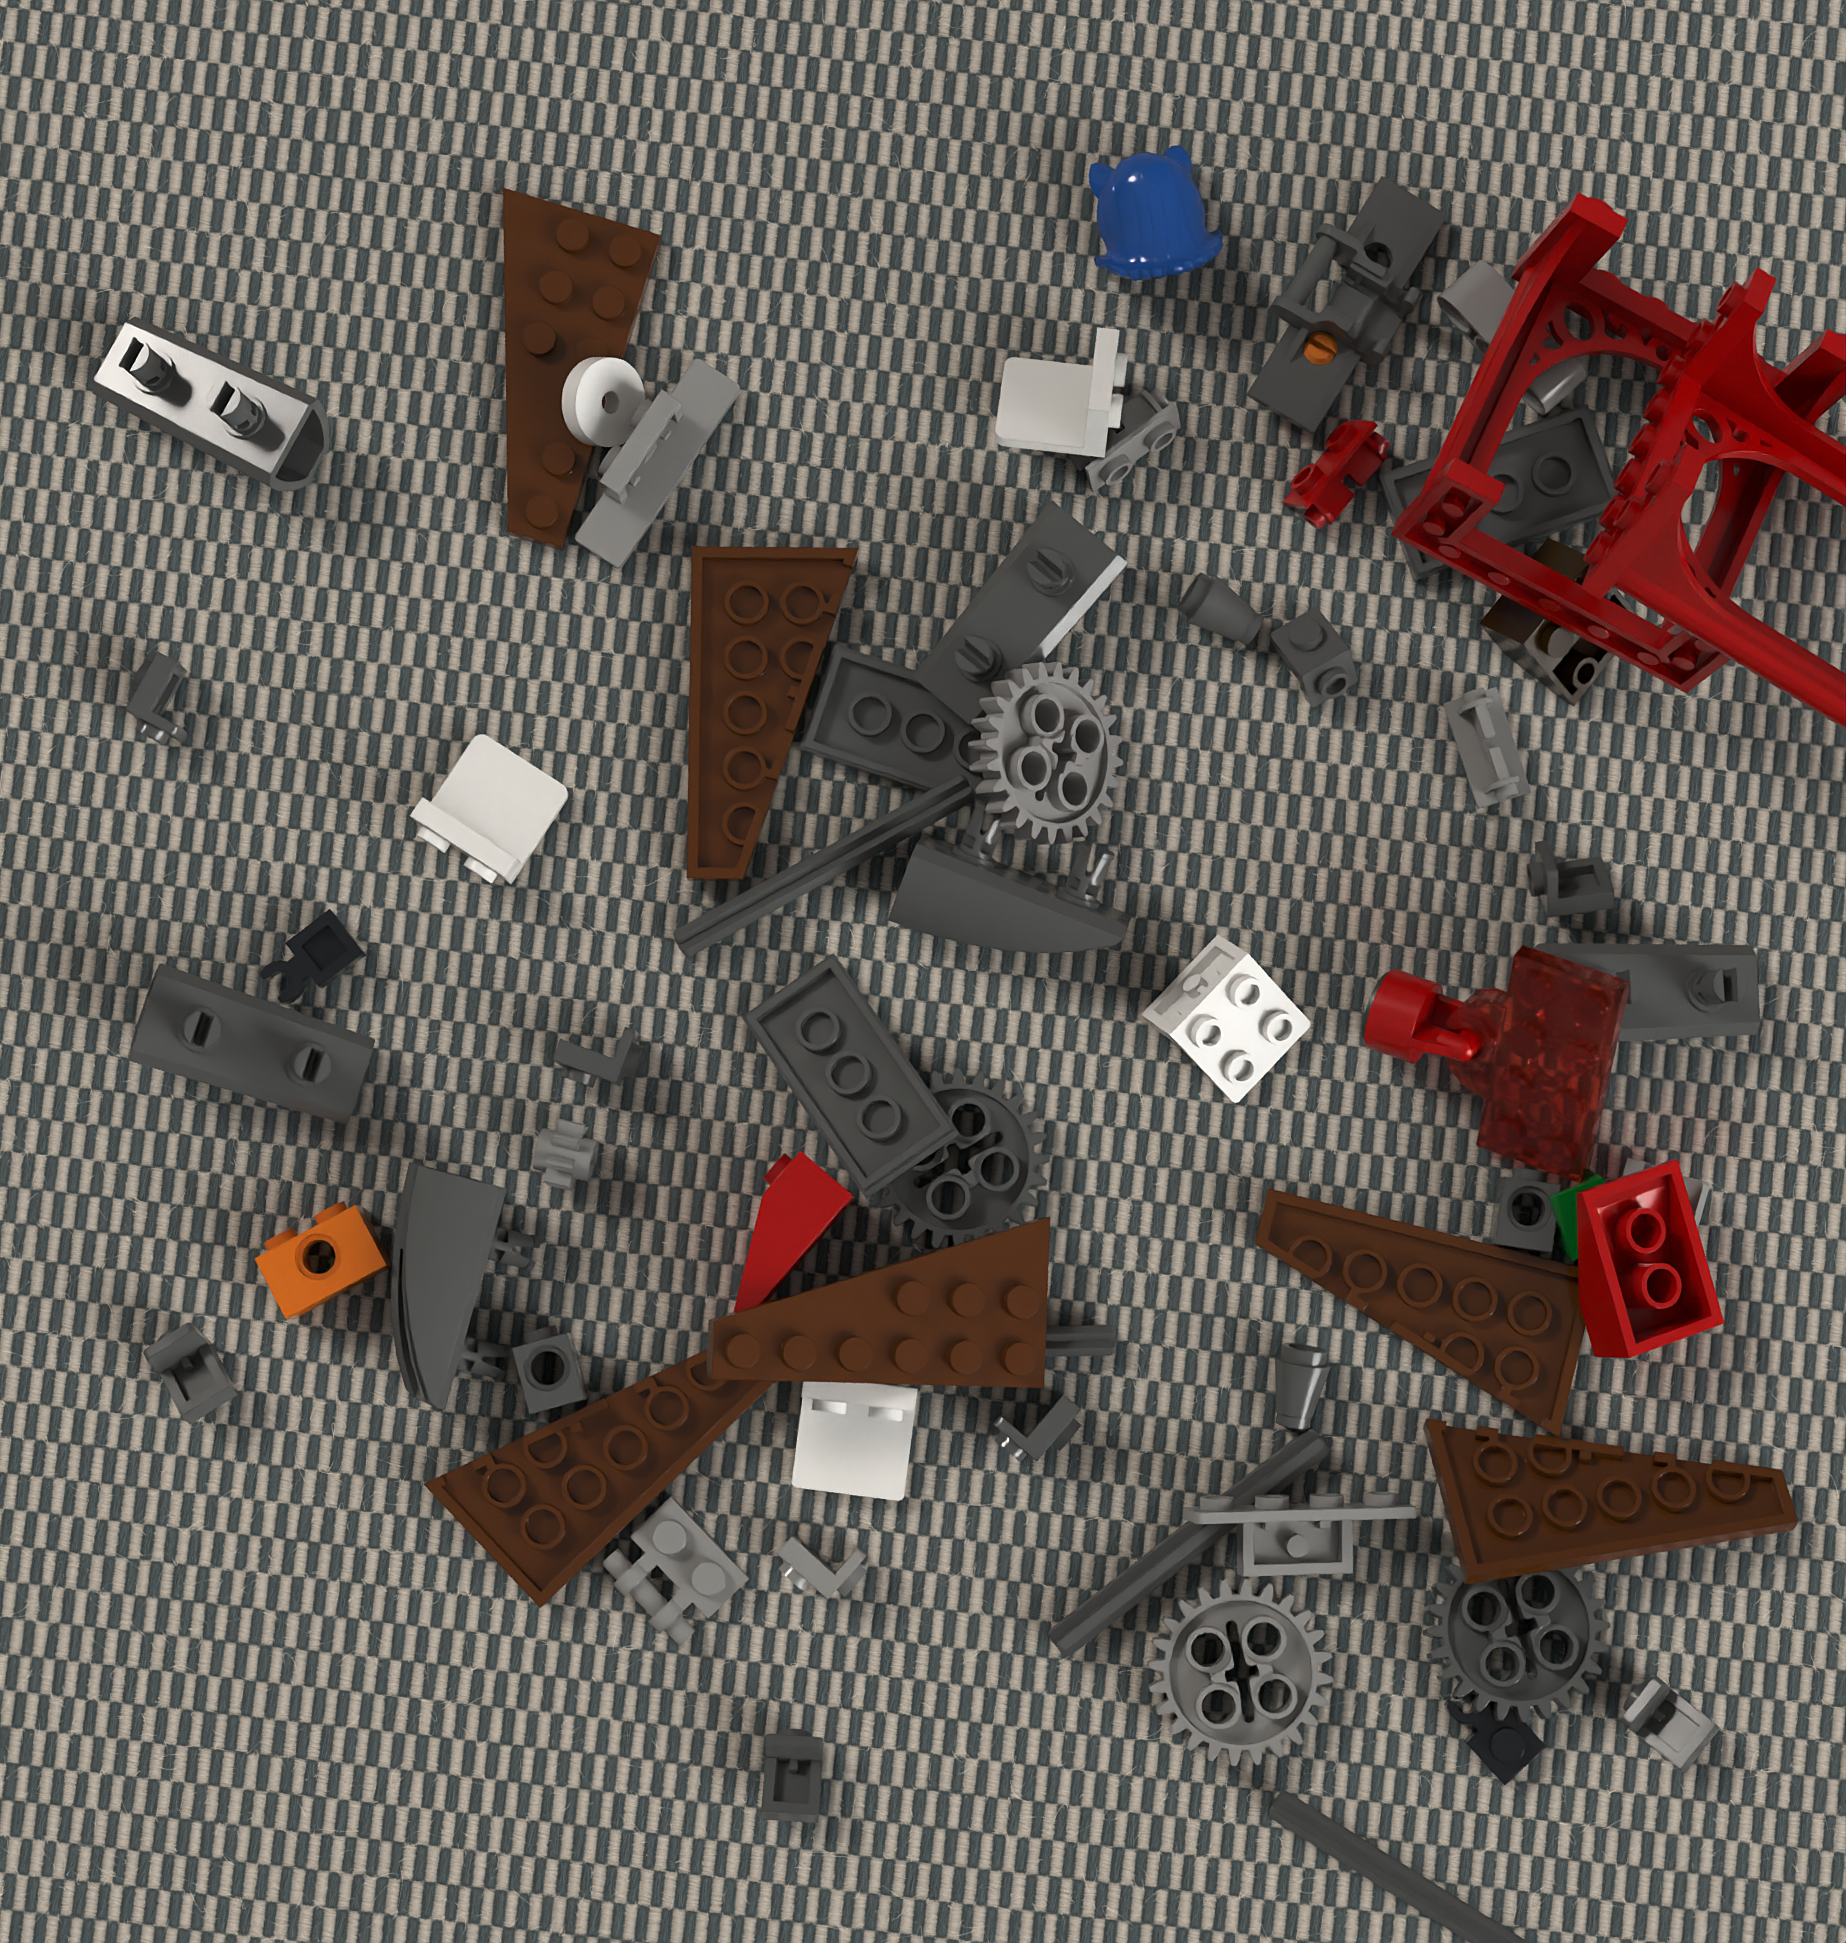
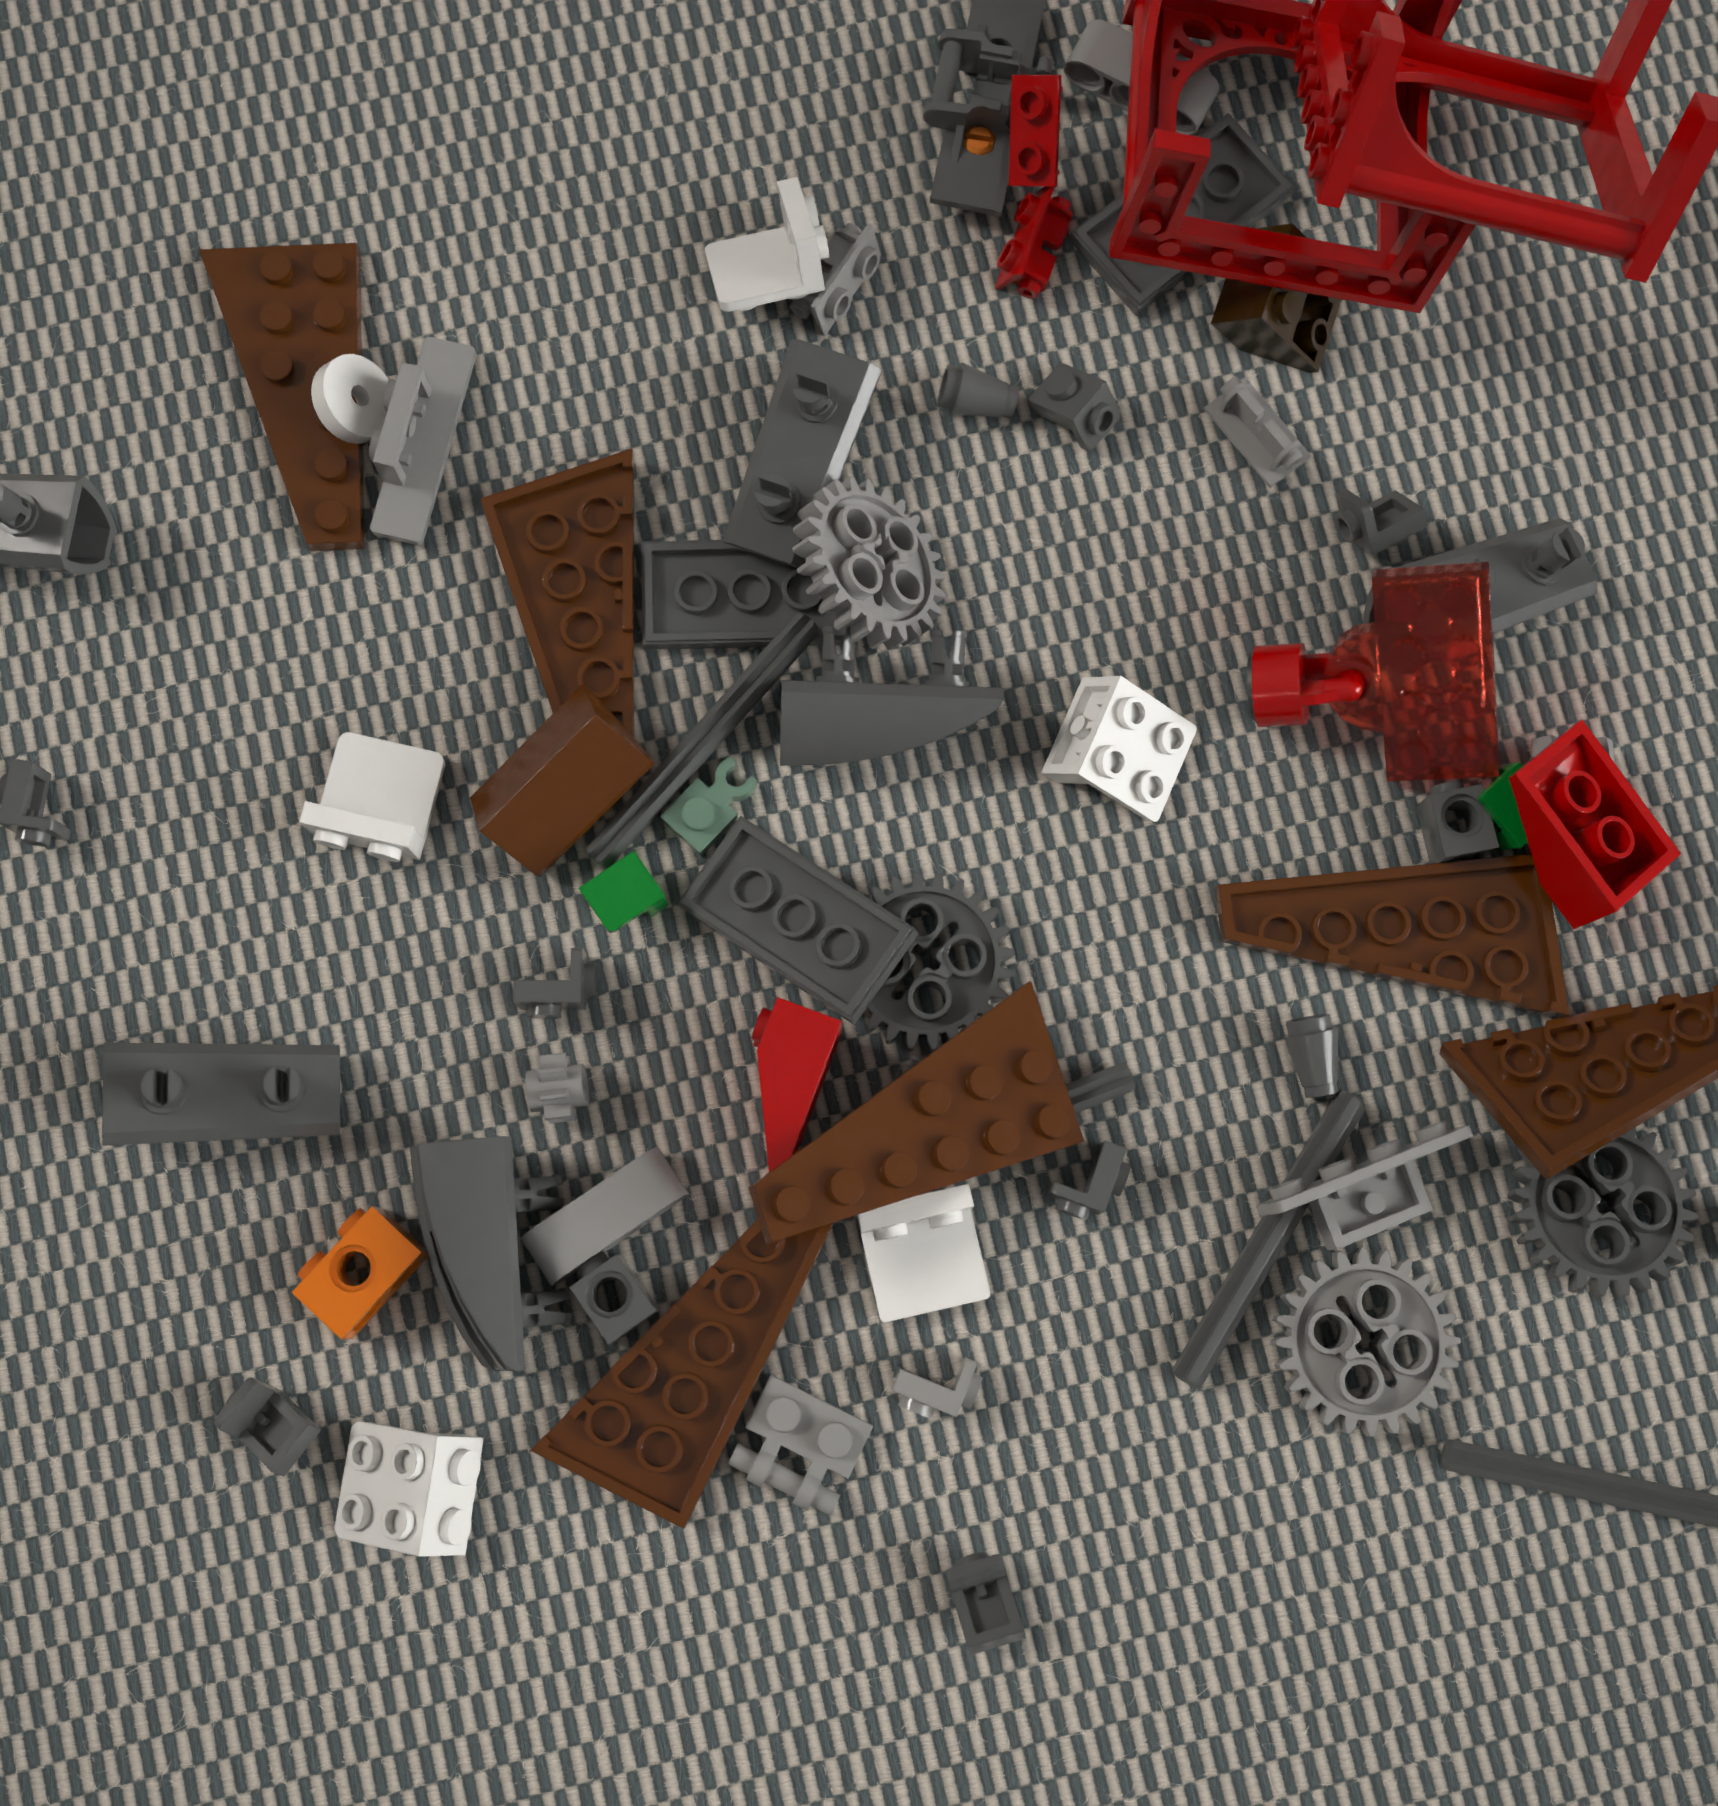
camera: 25 degrees left, 5 degrees down
(299, 1478) = (408, 1489): none -> white bracket
(320, 952) = (260, 984): black plate -> none
(568, 1291) = (604, 1216): none -> light grey beam
(669, 859) = (559, 782): none -> reddish brown slope
(693, 991) = (623, 893): none -> green panel
(799, 936) = (704, 812): none -> sand green plate
(1151, 216) = (786, 76): blue hair -> none
(1375, 365) = (1035, 130): none -> red hinge
(1500, 1745) = (1628, 1321): black plate -> none

